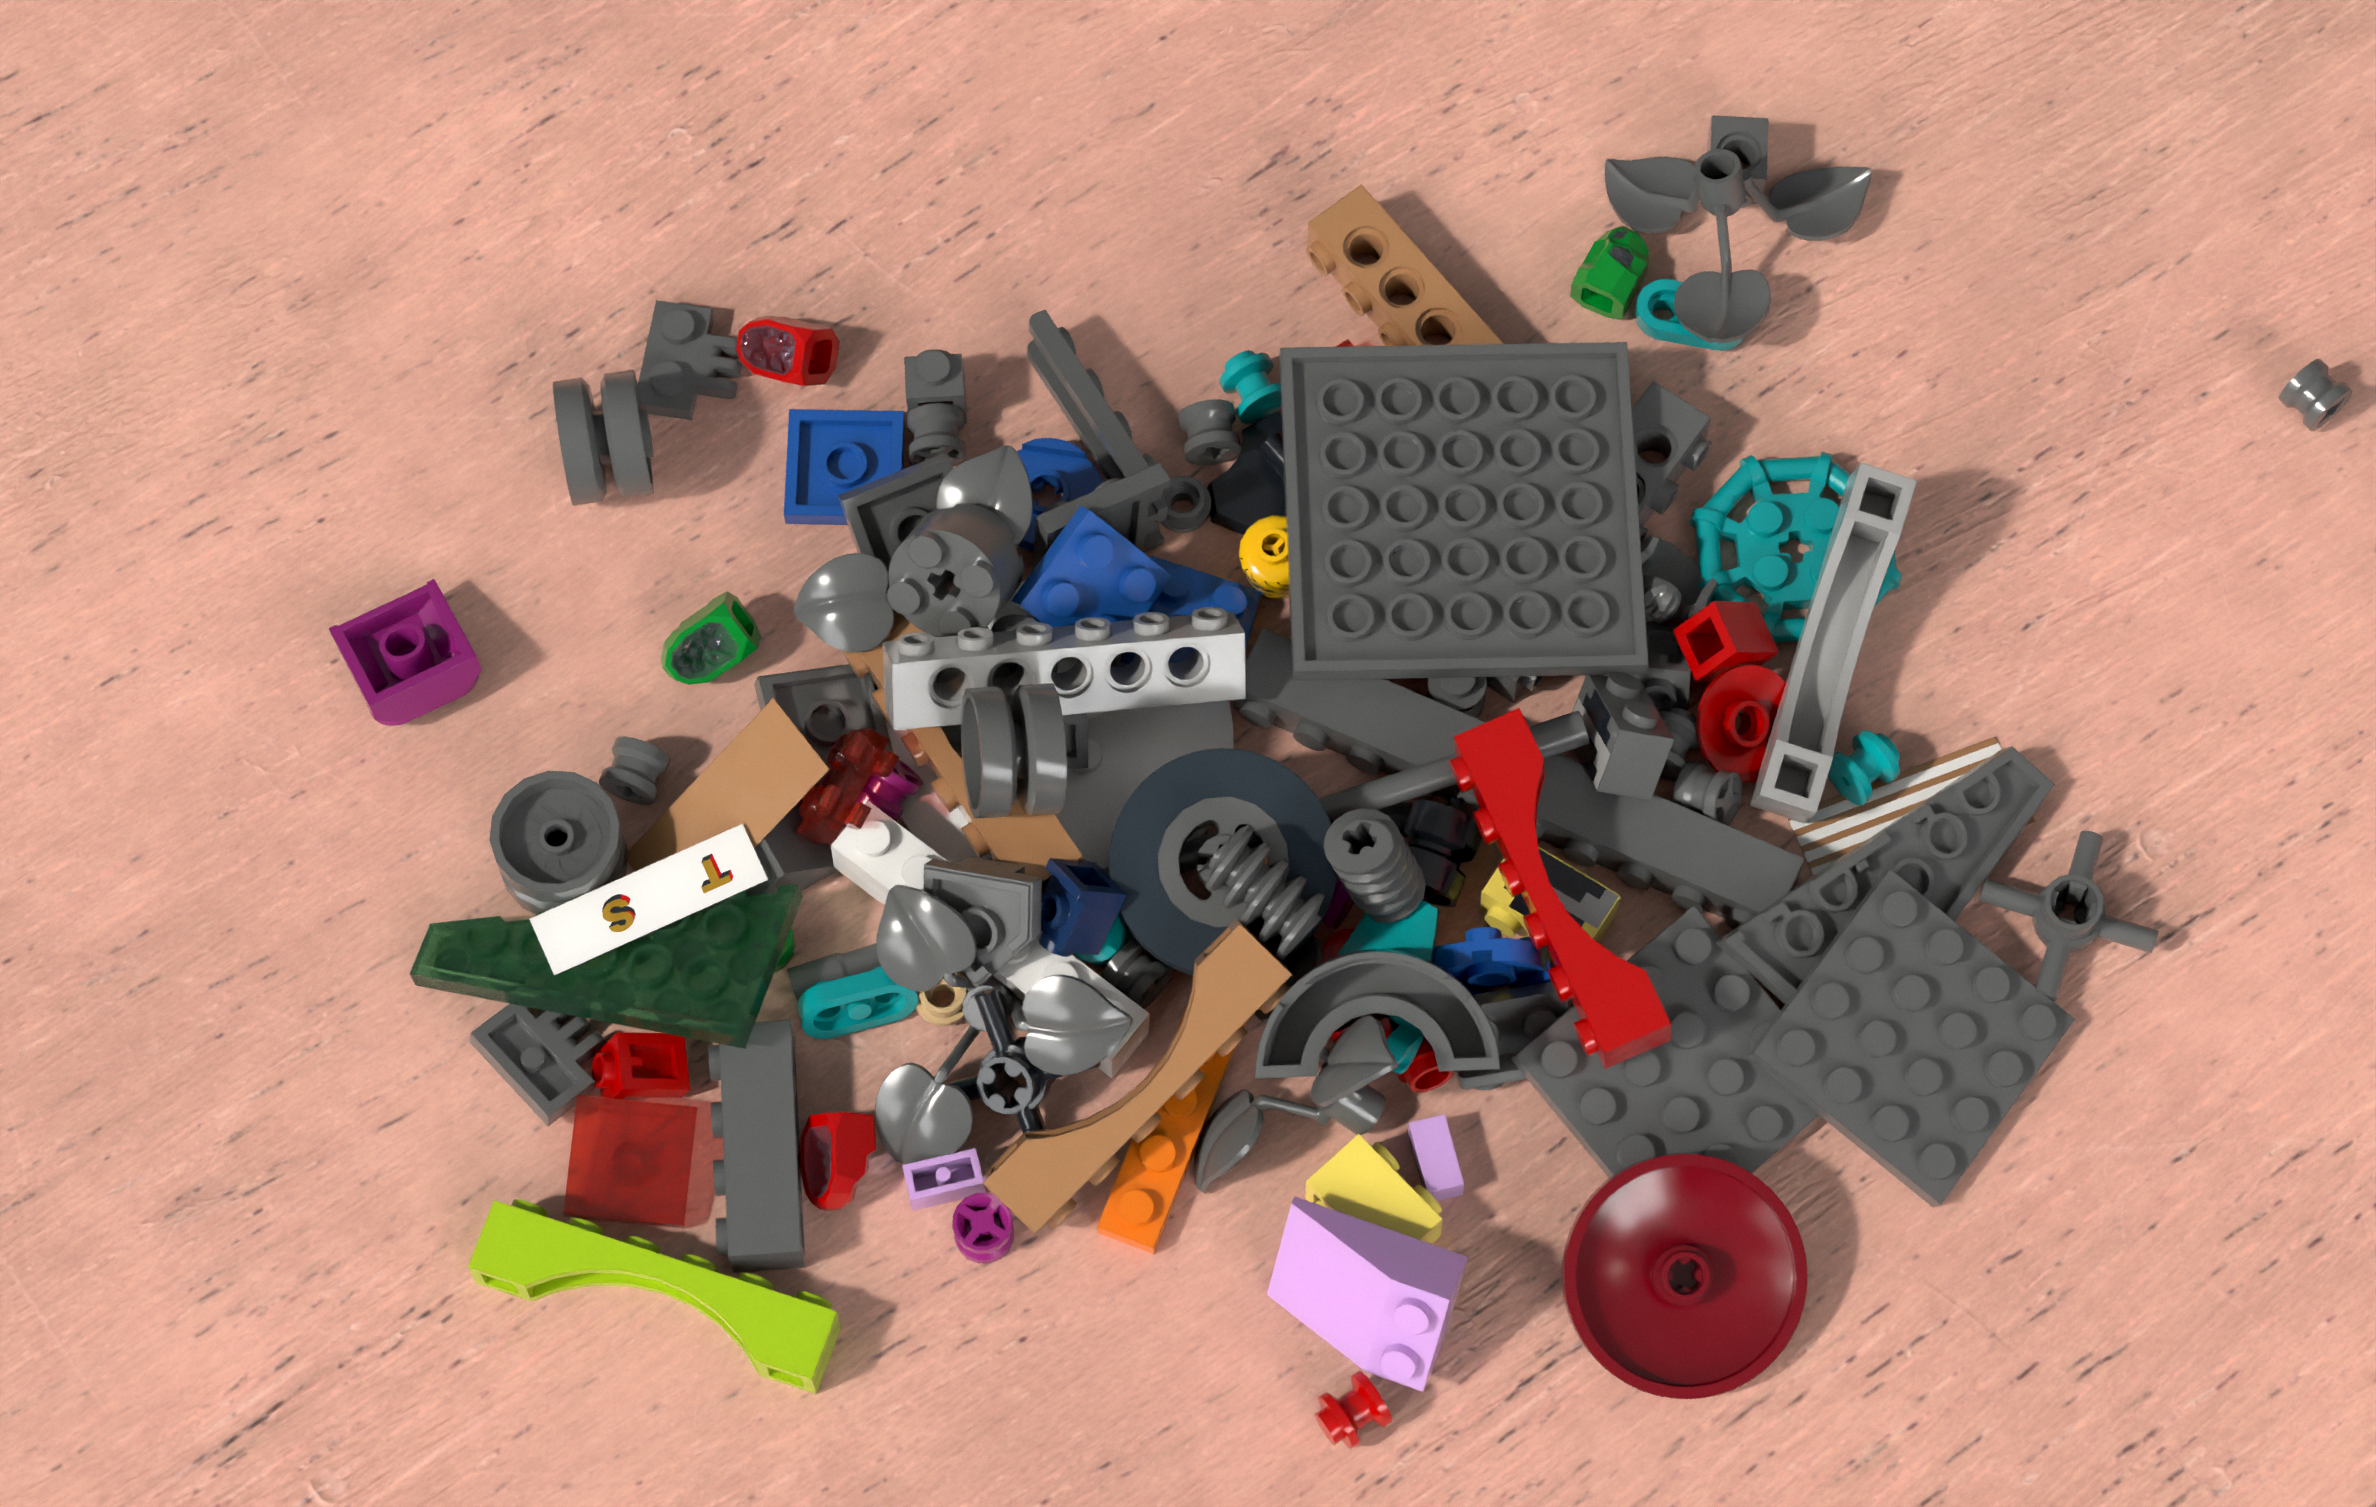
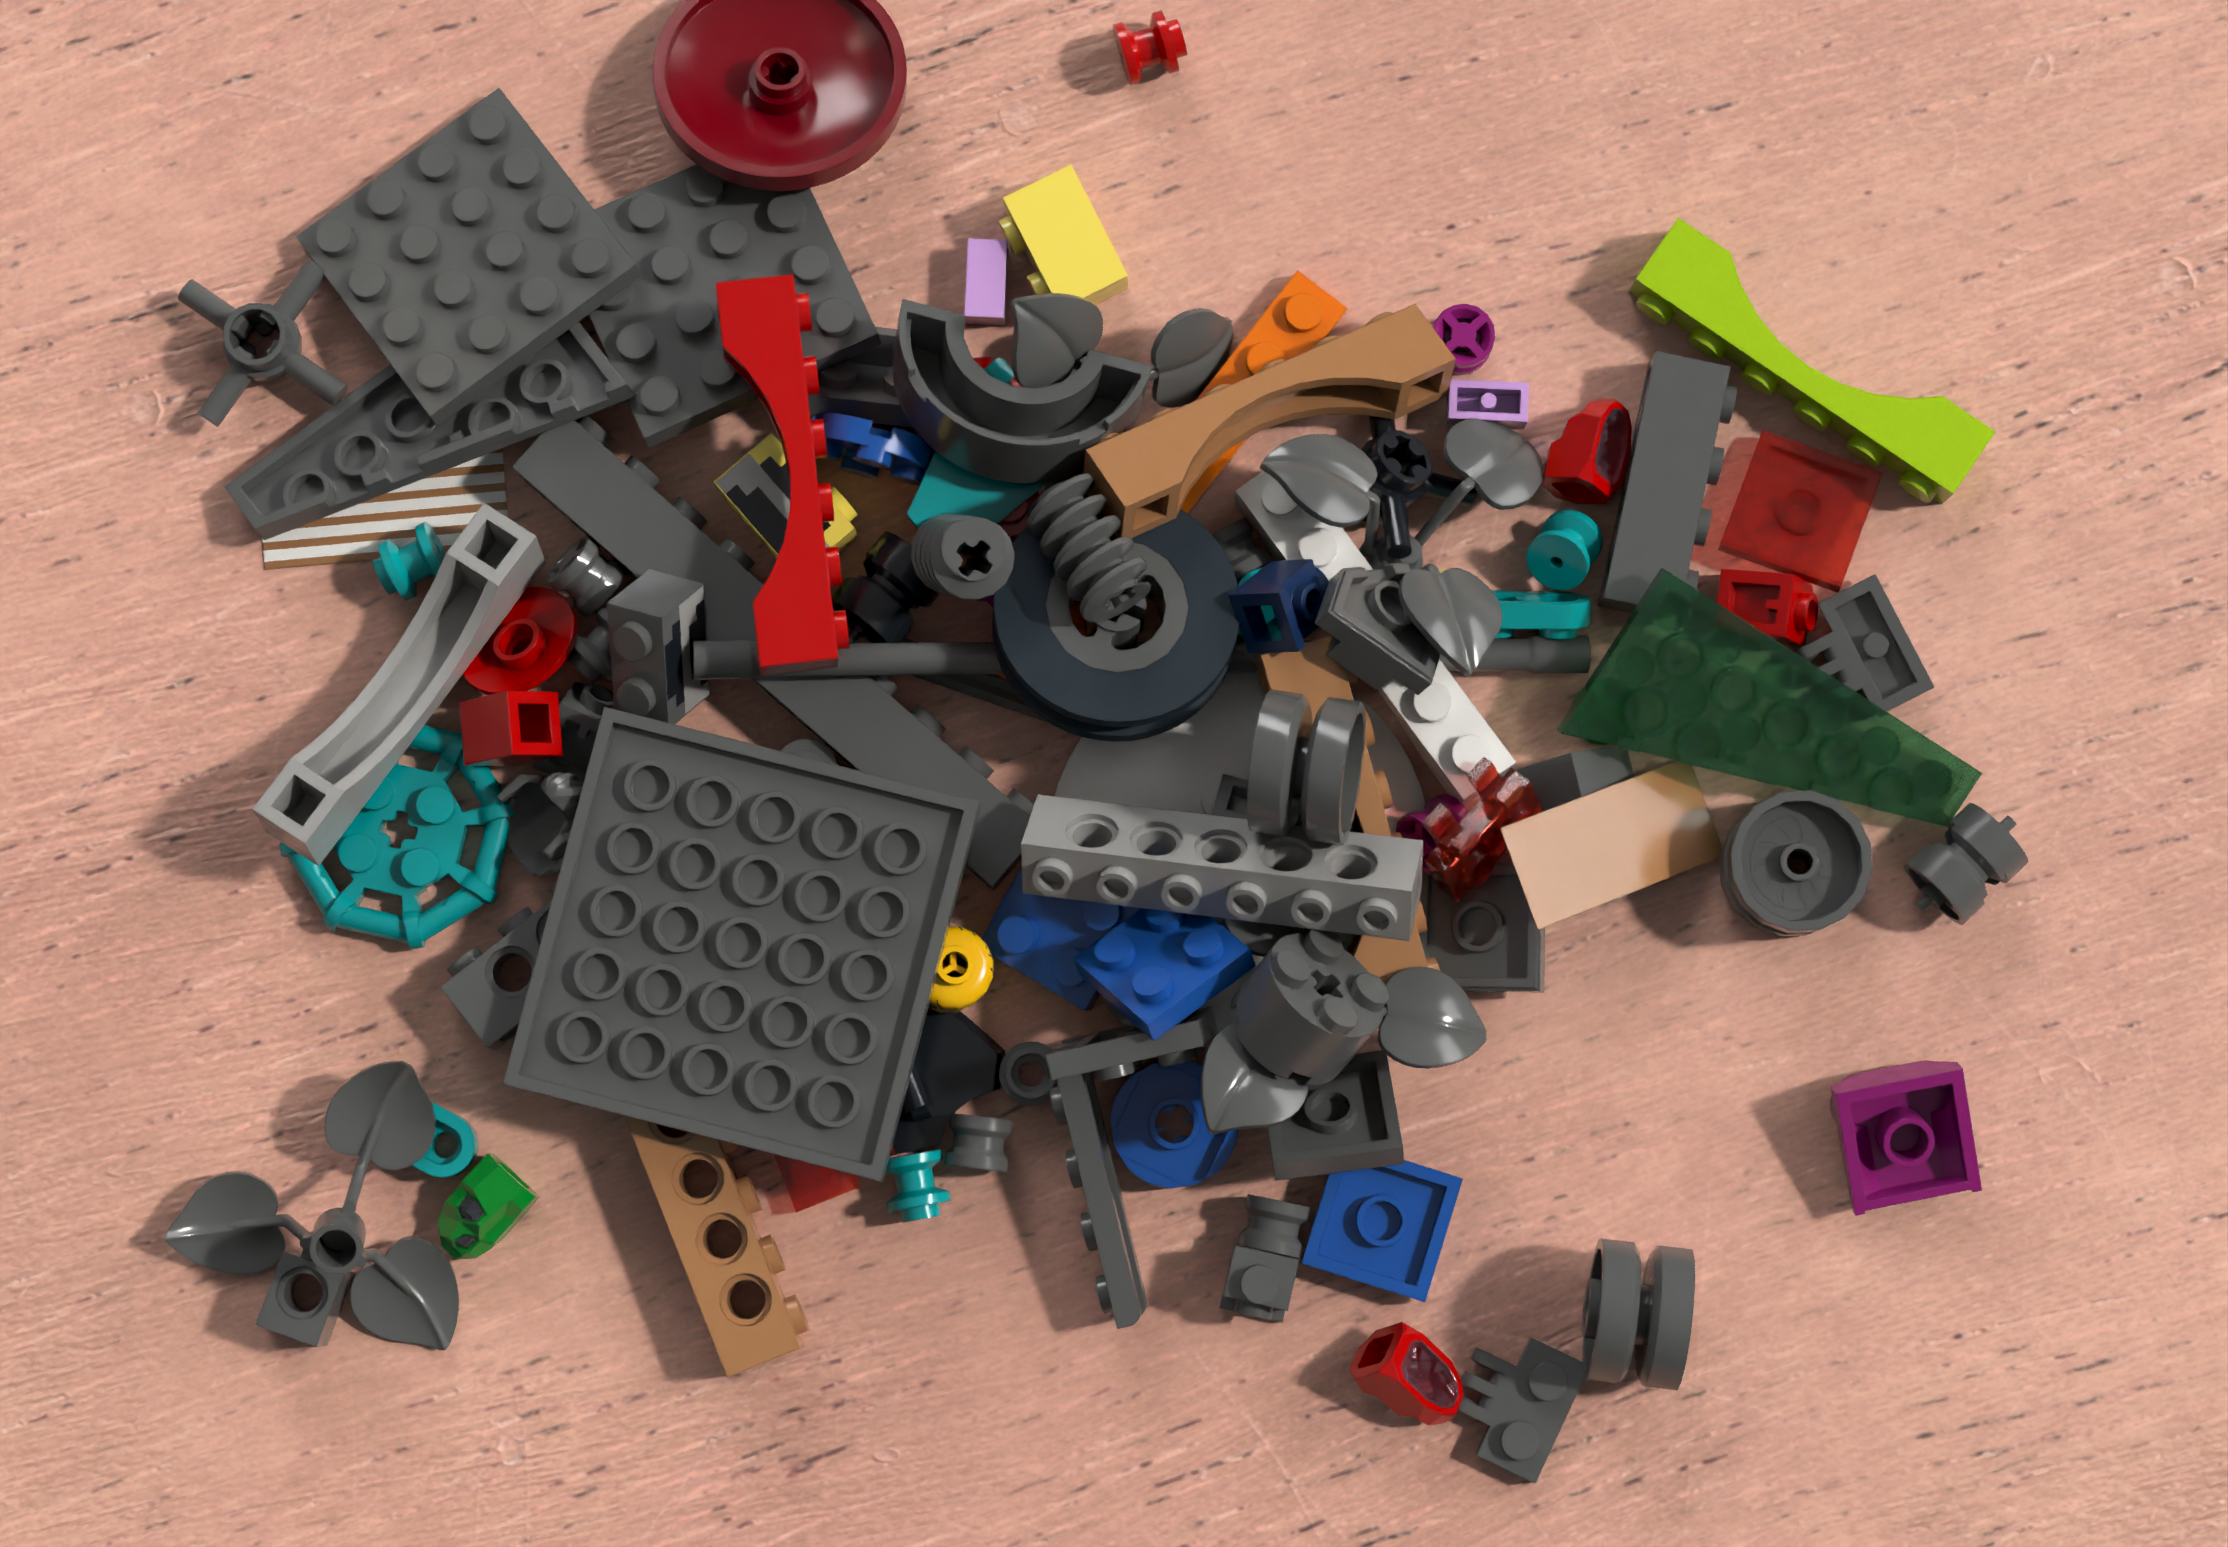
camera: 165 degrees left, 15 degrees up
(400, 899) = (1975, 854): none -> dark grey wheel
(634, 770) = (1694, 933): dark grey wheel -> none
(648, 899) = (1718, 766): white sticker -> none
(710, 641) = (1575, 1055): rock -> none
(835, 1073) = (1564, 549): none -> teal wheel
(1367, 1290) = (1096, 138): lavender slope -> none

